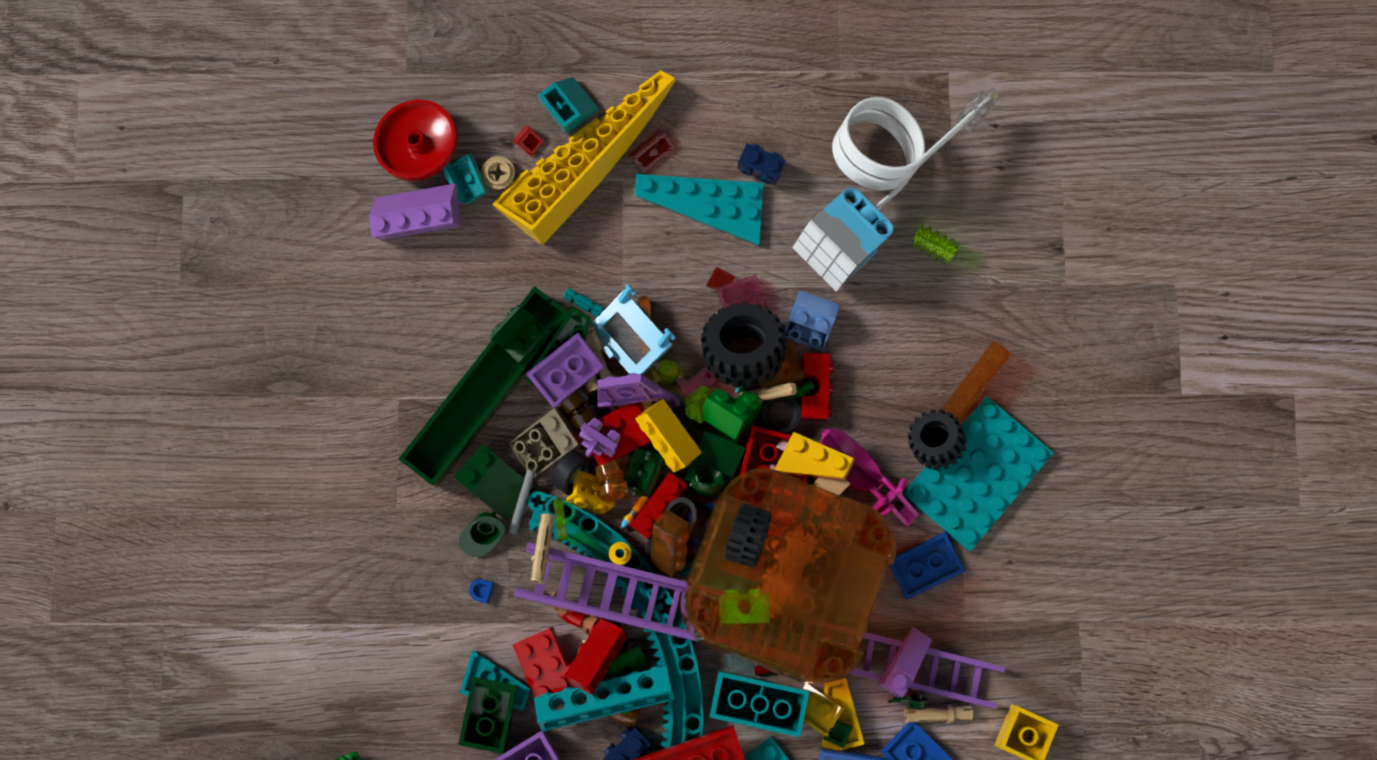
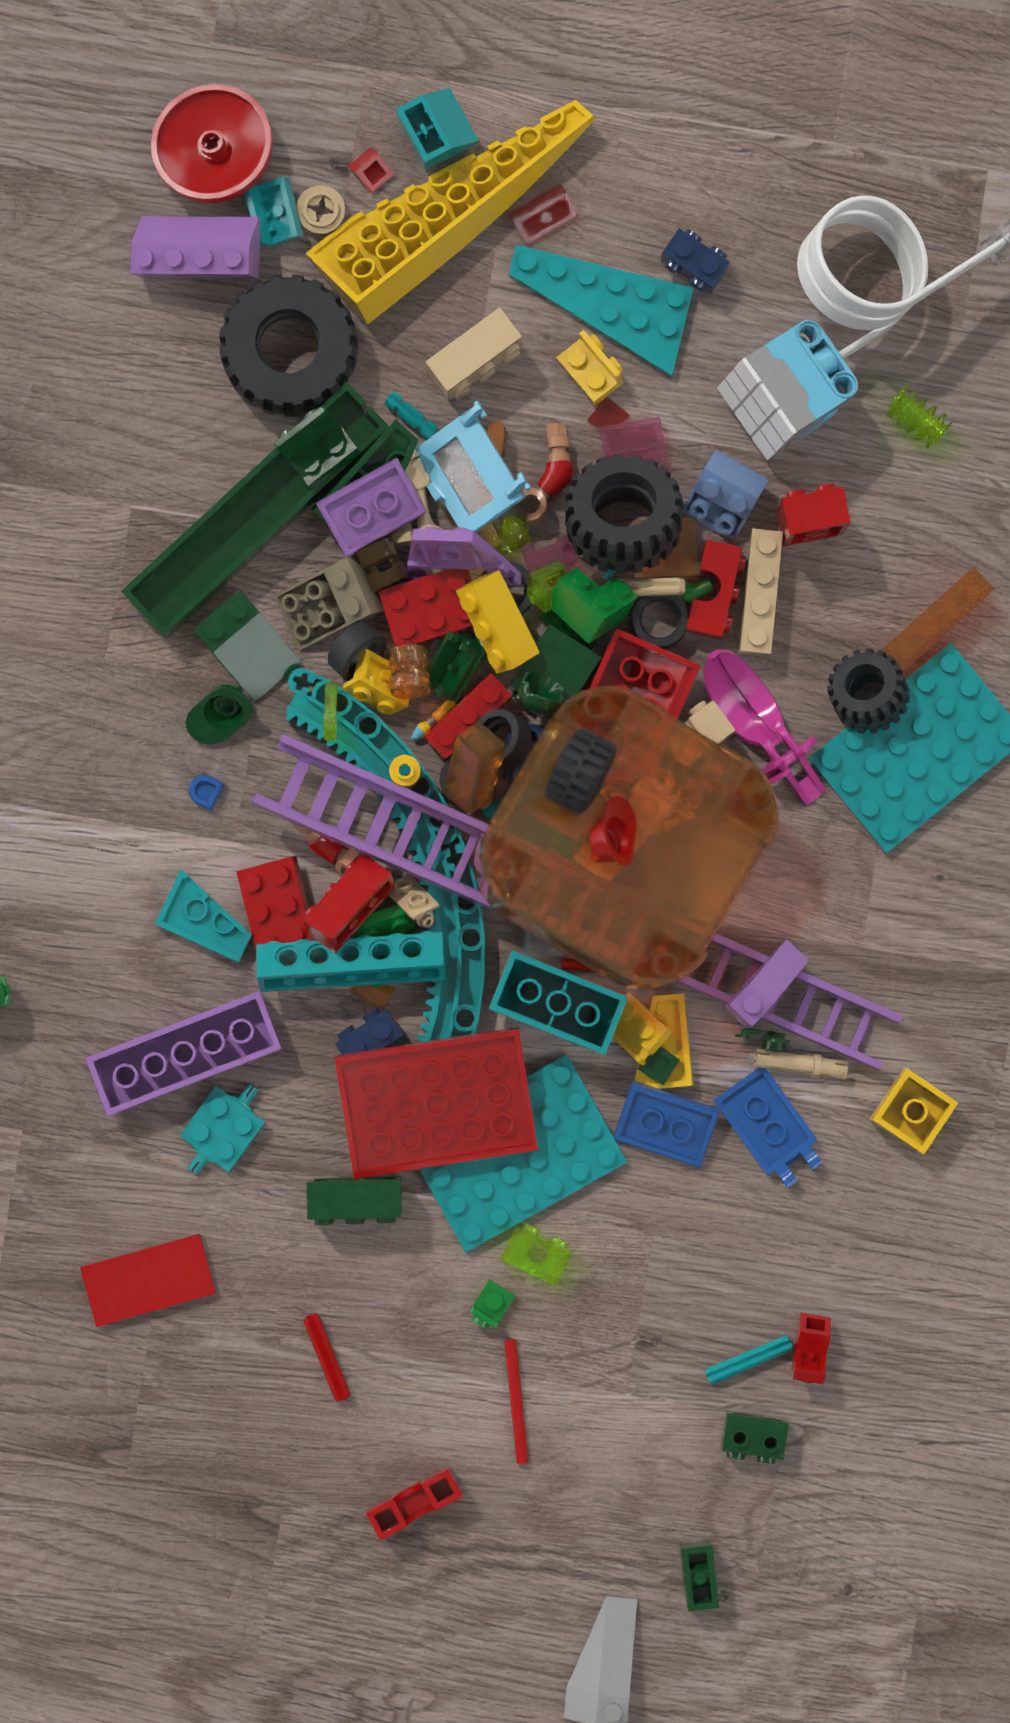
camera: 10 degrees right, 5 degrees up
(471, 243) = (277, 301): none -> black tyre
(488, 715) = (190, 958): dark green slope -> none
(522, 501) = (280, 679): light grey bar -> none
(540, 558) = (297, 758): tan pin -> none
(596, 442) = (398, 614): medium lavender hips -> none
(620, 253) = (474, 355): none -> tan brick
(642, 645) = (414, 900): none -> tan hinge
(691, 326) = (557, 473): none -> piece
(702, 248) = (591, 368): none -> yellow bracket
(757, 614) = (539, 871): clear neon green brick -> none
(781, 576) = (615, 834): none -> red piece
(811, 458) = (689, 687): yellow wing -> none
(848, 384) = (760, 593): none -> tan brick
(876, 323) = (813, 514): none -> red brick
(926, 565) = (822, 862): blue tile -> none

